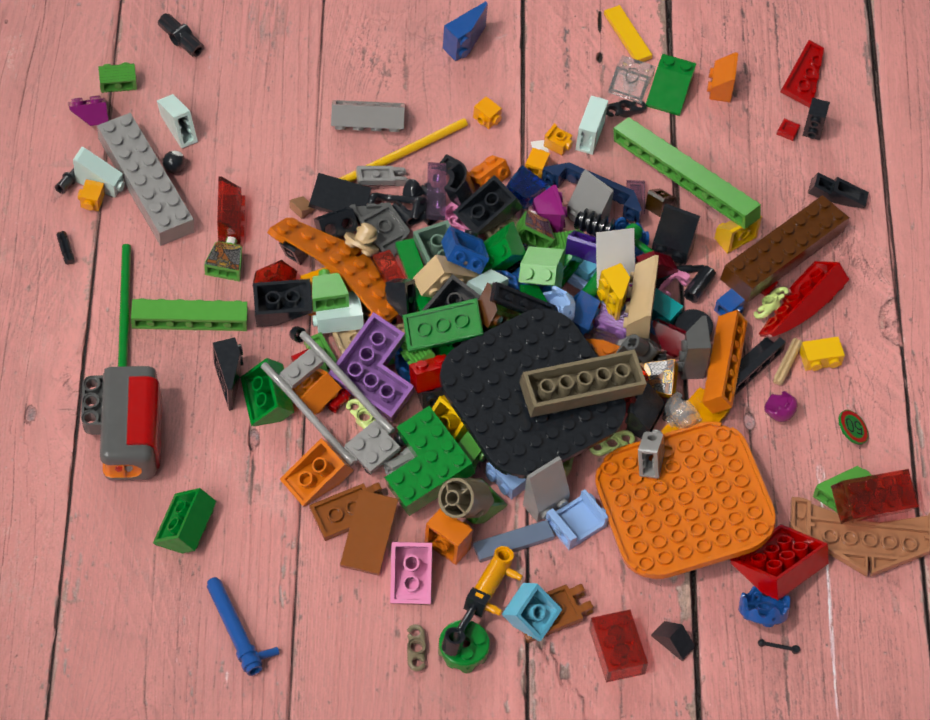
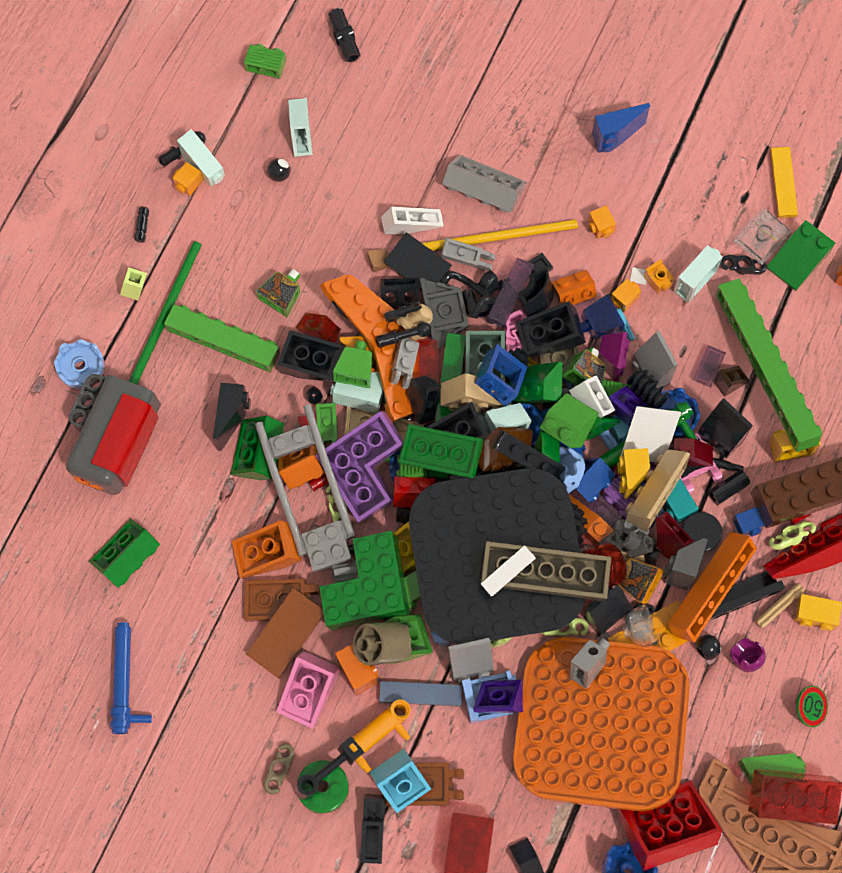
camera: 30 degrees right, 15 degrees up
(62, 369) = (77, 352): none -> light blue plate
(84, 295) = (133, 283): none -> yellowish green brick
(91, 111) = (224, 88): magenta slope -> none
(145, 179) = (243, 179): light grey brick -> none
(230, 211) = (304, 243): clear red slope -> none
(308, 165) = (410, 220): none -> white slope
(342, 239) = (402, 311): none -> black piece
(352, 255) = (423, 329): none -> black pin
(370, 274) = (404, 361): none -> light grey hinge
(525, 663) = (373, 829): none -> black slope
(550, 238) = (593, 395): none -> white slope
(552, 389) = (508, 570): none -> white sticker
(567, 171) = (640, 314): dark blue slope -> none
(588, 512) = (499, 697): none -> dark purple slope
(744, 413) = (708, 646): none -> black piece

